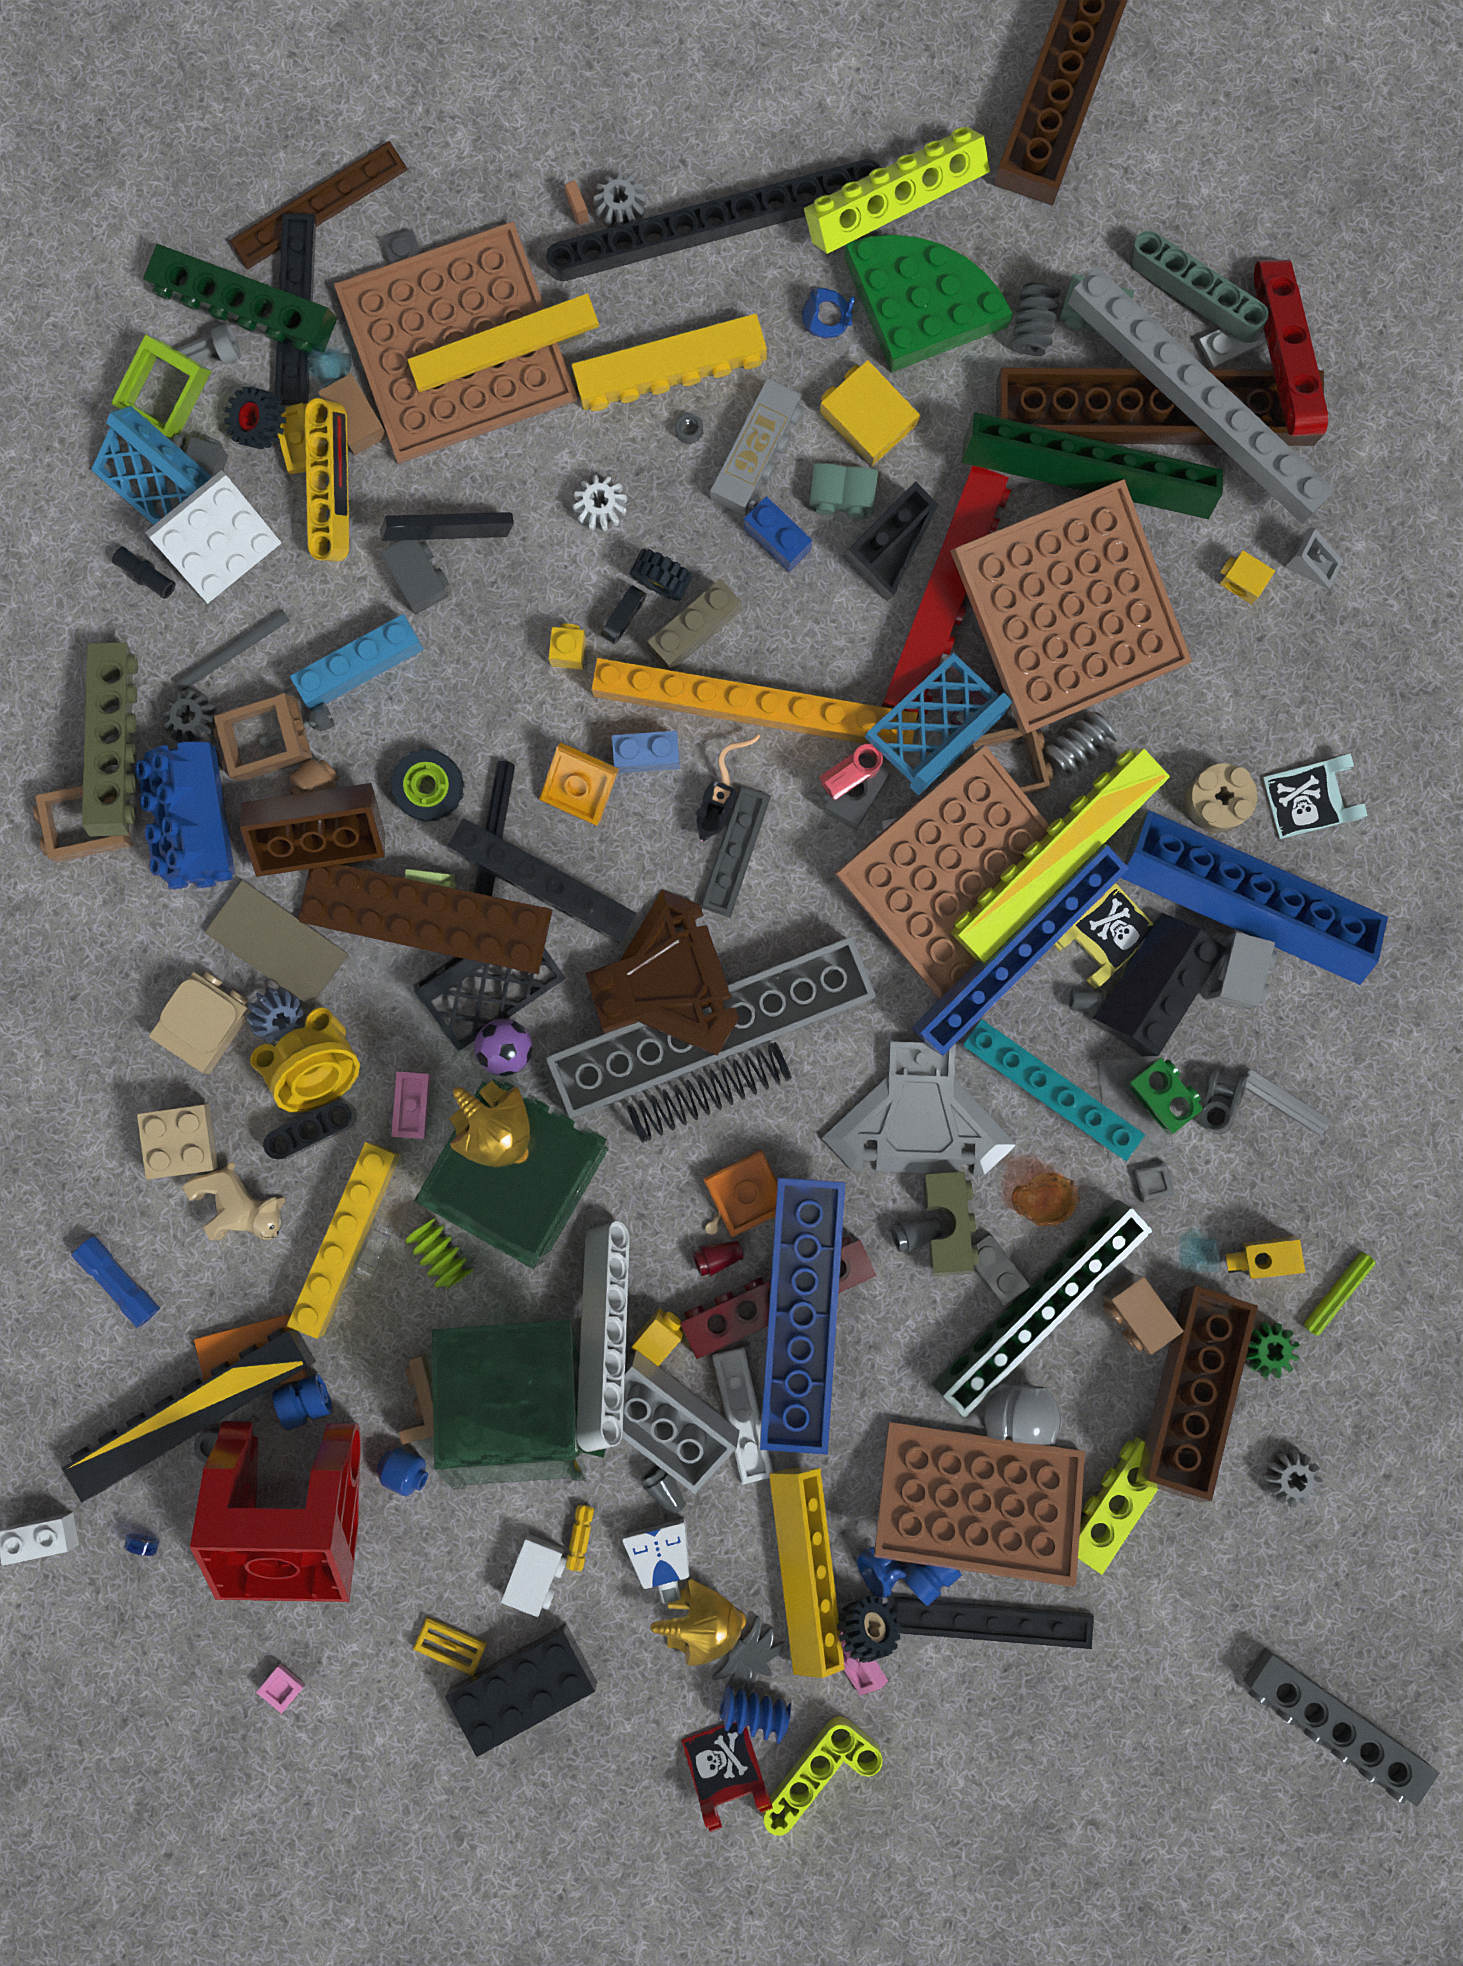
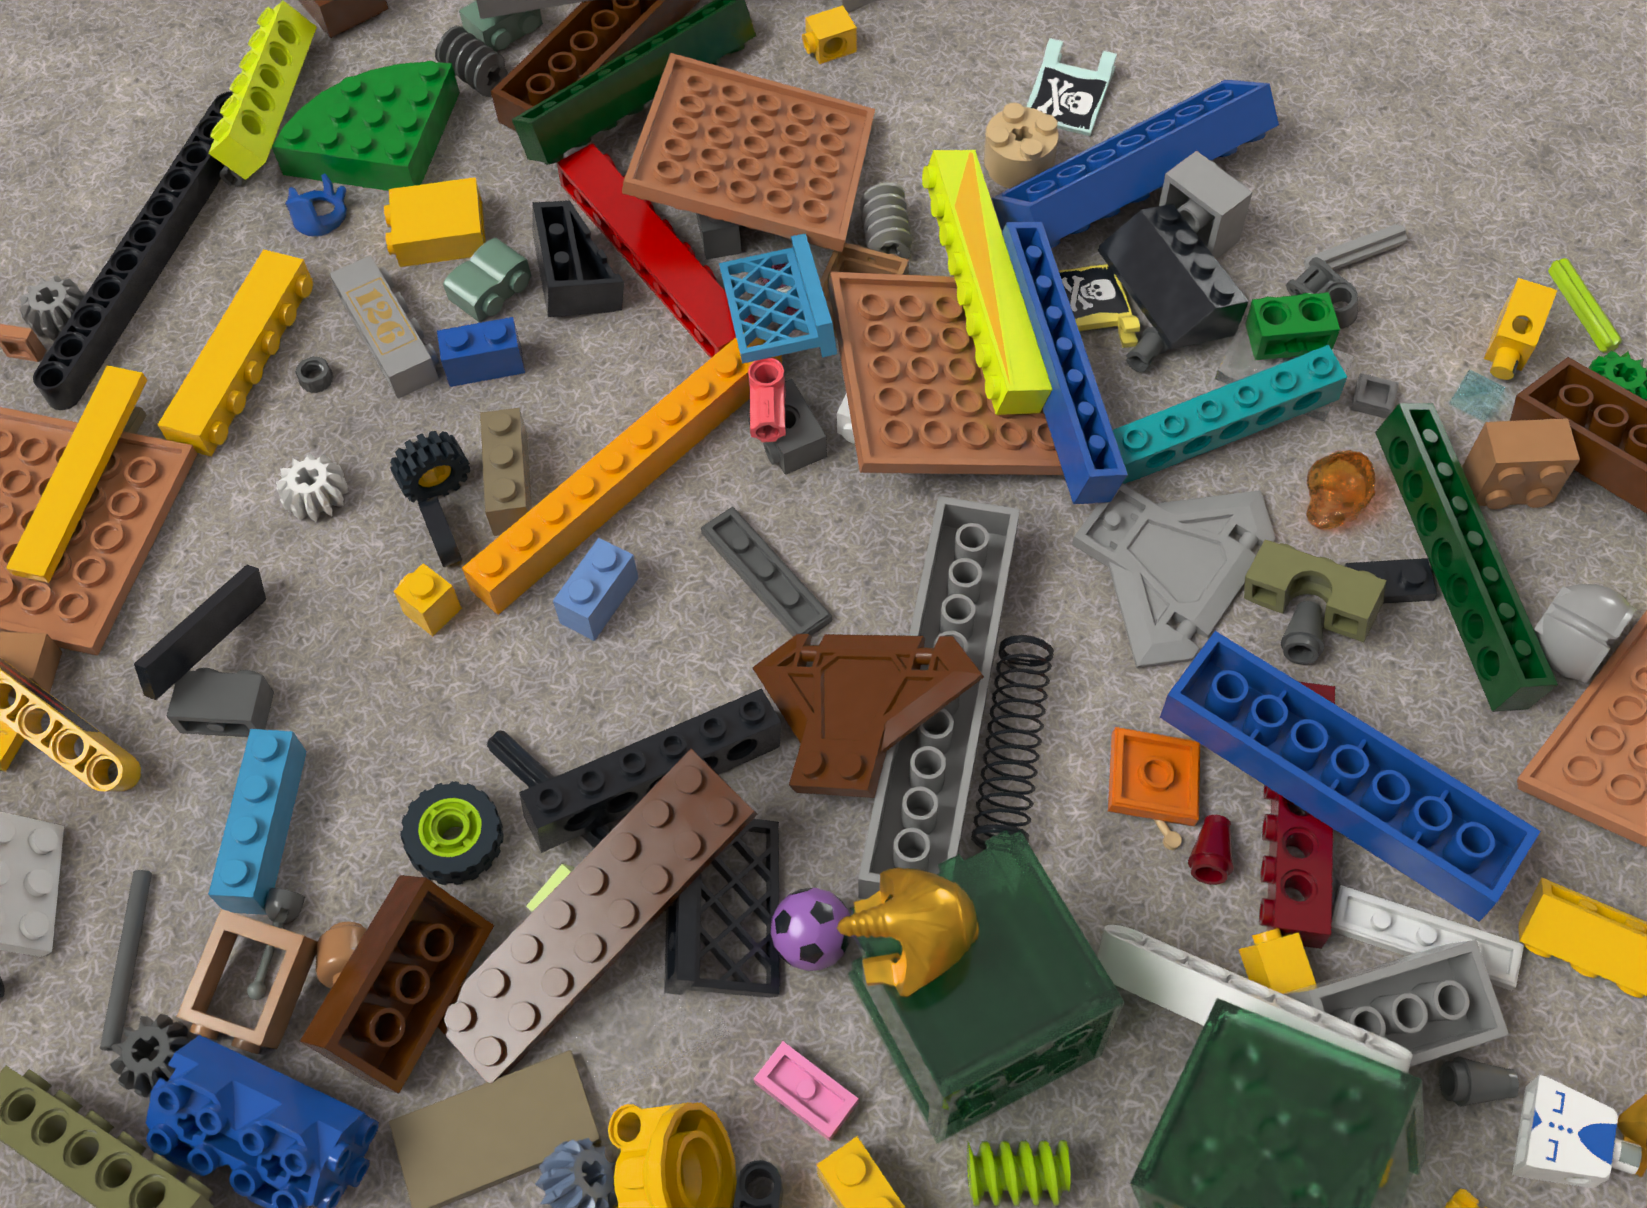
camera: 55 degrees left, 25 degrees down
(578, 784) = (577, 671): light orange tile -> none
(718, 798) = (699, 551): black animal -> none

